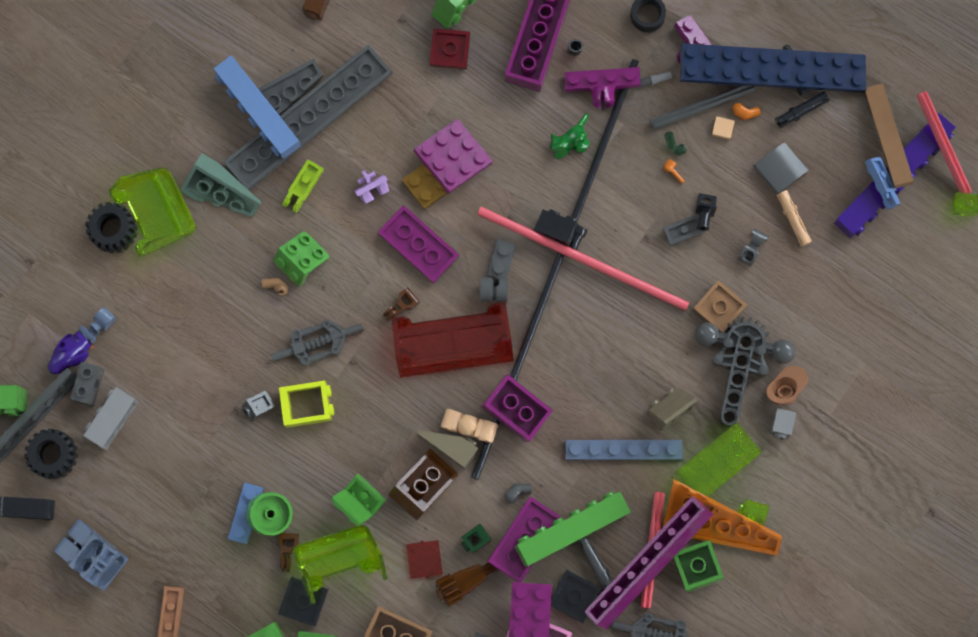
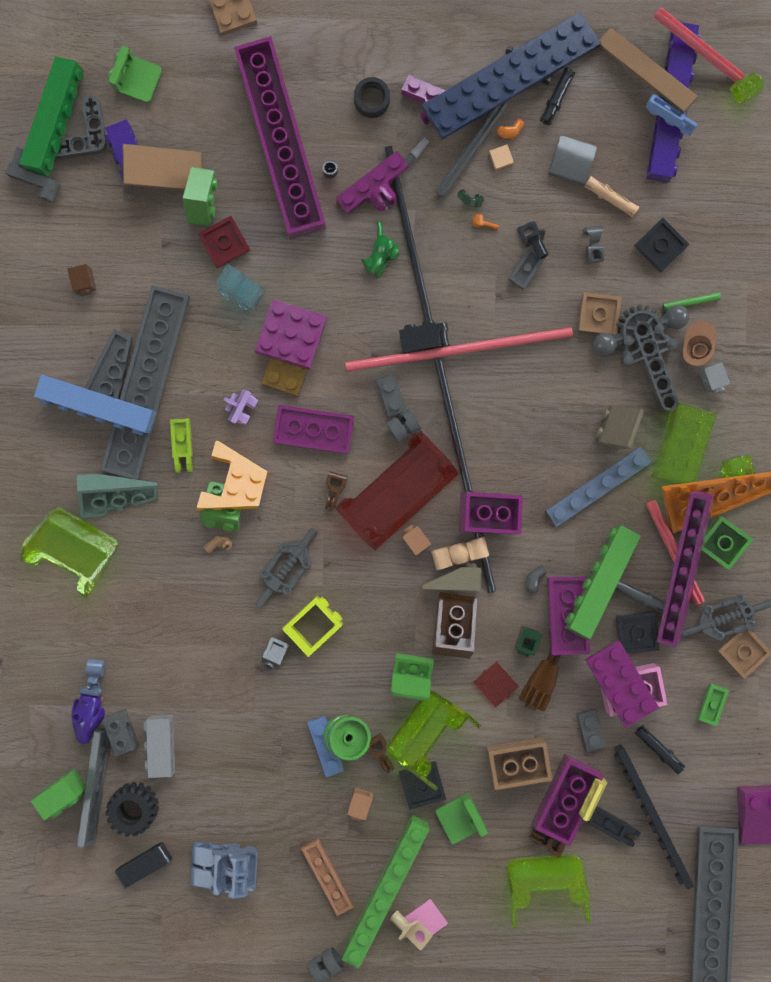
camera: 40 degrees left, 10 degrees up
(104, 214) = (30, 592): black tyre -> none
(239, 581) = (360, 804): none -> nougat brick
(329, 249) = (242, 485): none -> light orange wing
(435, 89) = (235, 285): none -> clear light blue brick
(440, 390) = (415, 539): none -> nougat brick
(808, 349) = (694, 301): none -> bright green bar
(810, 284) = (661, 245): none -> black plate

